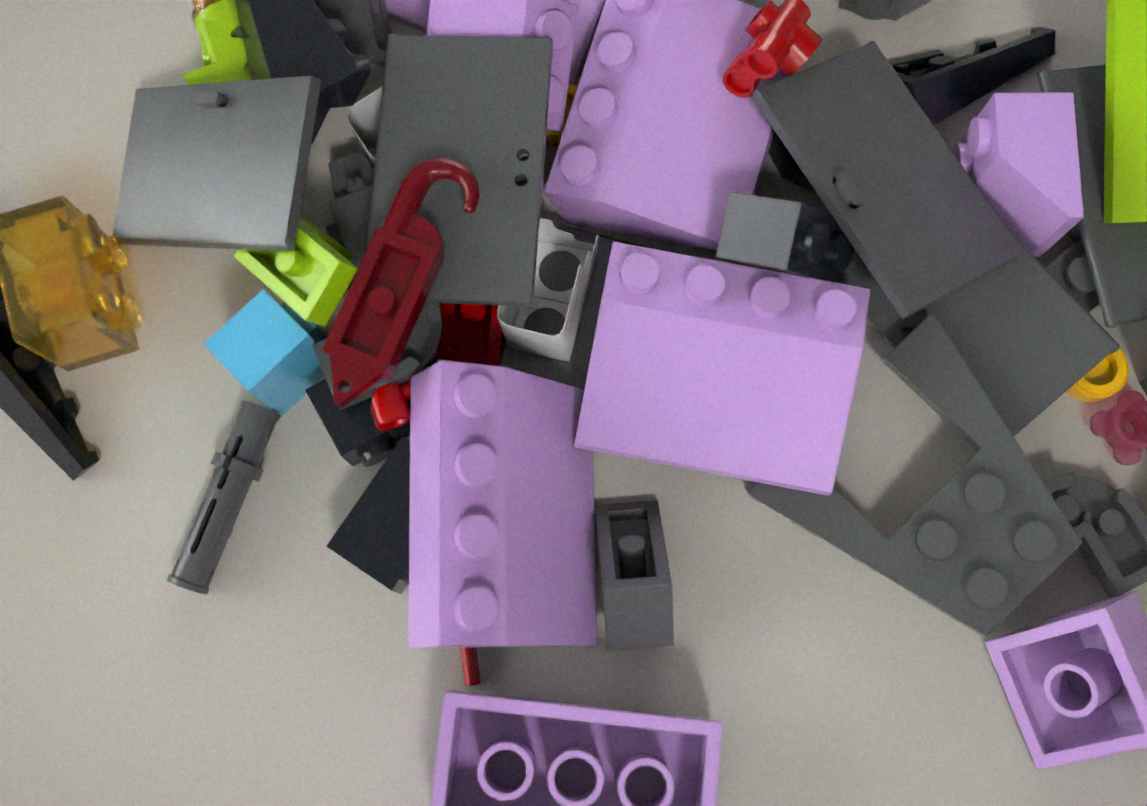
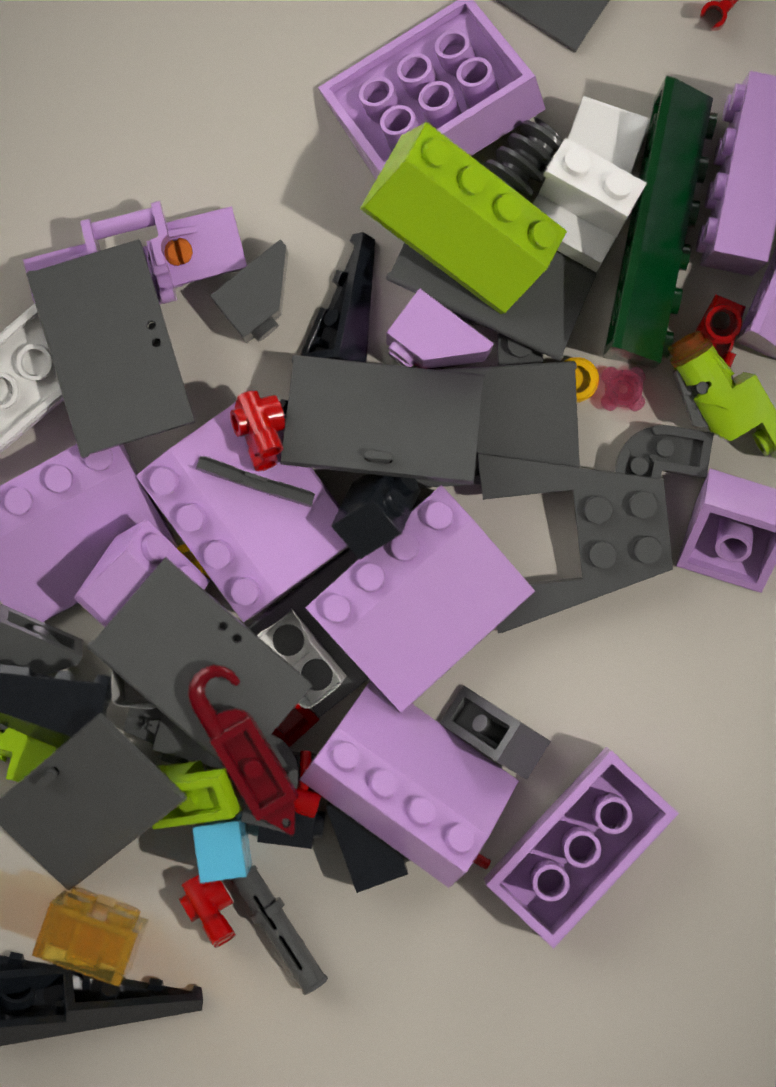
camera: 55 degrees left, 10 degrees up
(194, 391) = (206, 902): none -> red plate
(709, 90) = (255, 481): none -> dark grey piece

